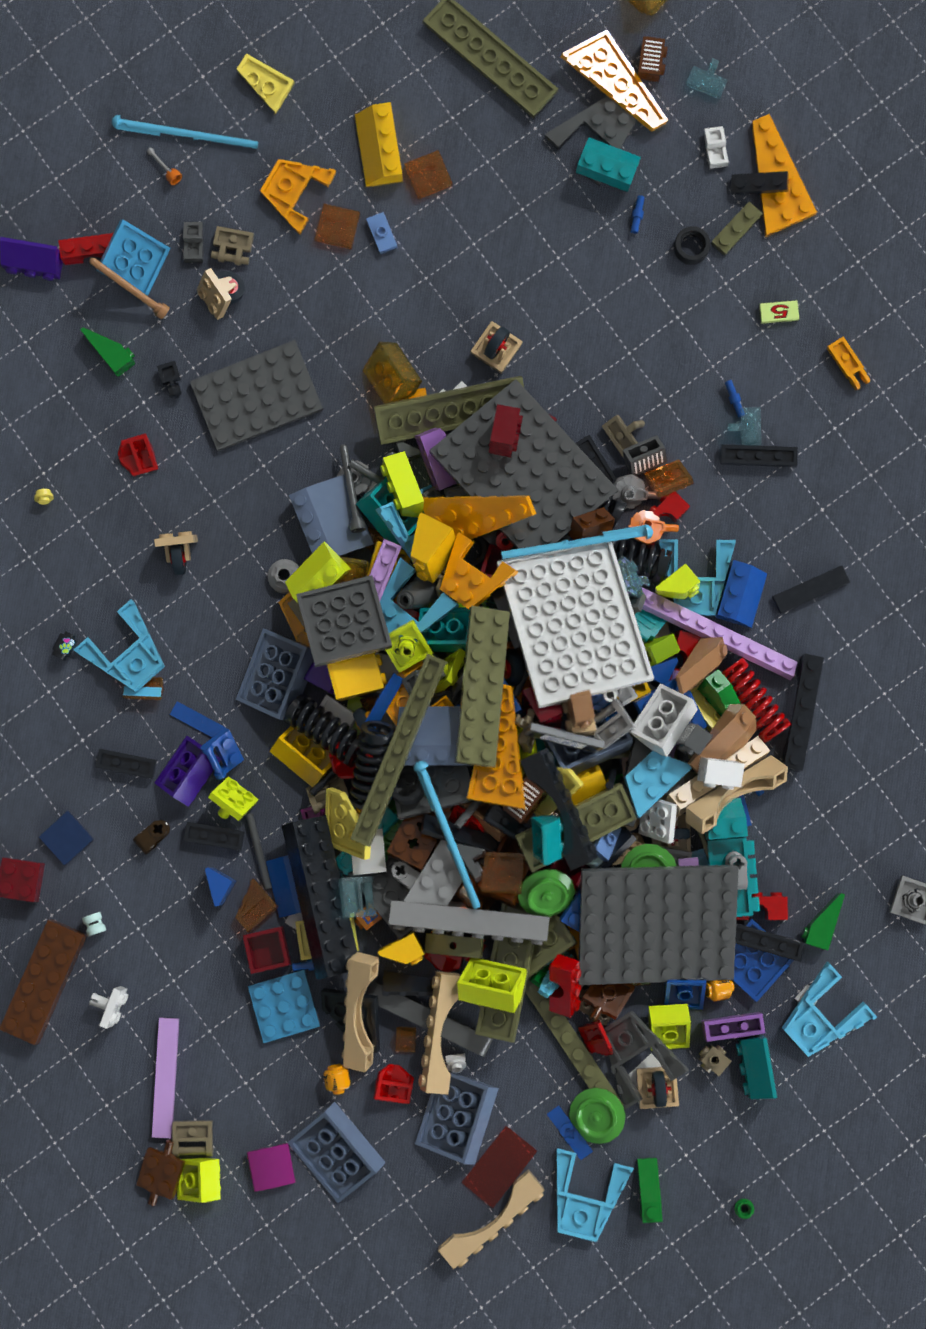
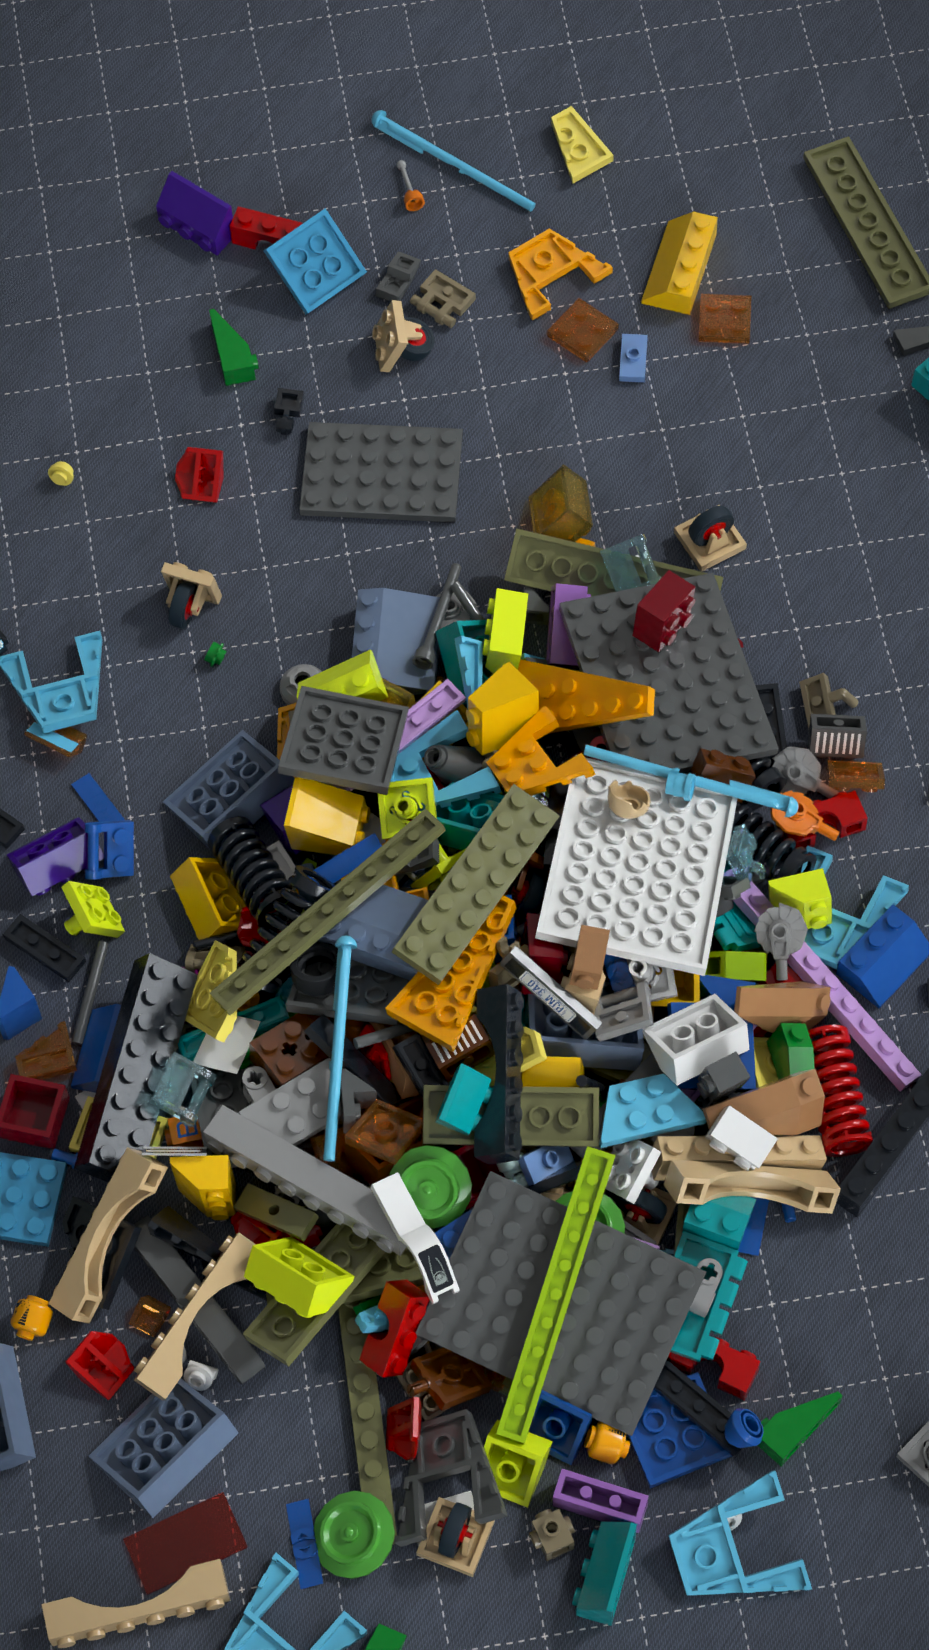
camera: 30 degrees right, 20 degrees down
(159, 309) = (316, 329): medium nougat piece -> none
(216, 580) = (215, 654): none -> green plate
(376, 944) = (183, 1151): none -> sticker
(456, 404) = (621, 567): none -> clear light blue plate
(549, 581) = (628, 800): none -> tan hair
(555, 932) = (416, 1235): none -> white piece
(574, 553) = (681, 785): none -> medium azure piece
(656, 924) = (555, 1295): none -> lime plate
(678, 617) = (781, 933): none -> light grey piece
(800, 947) = (743, 1429): none -> blue cone

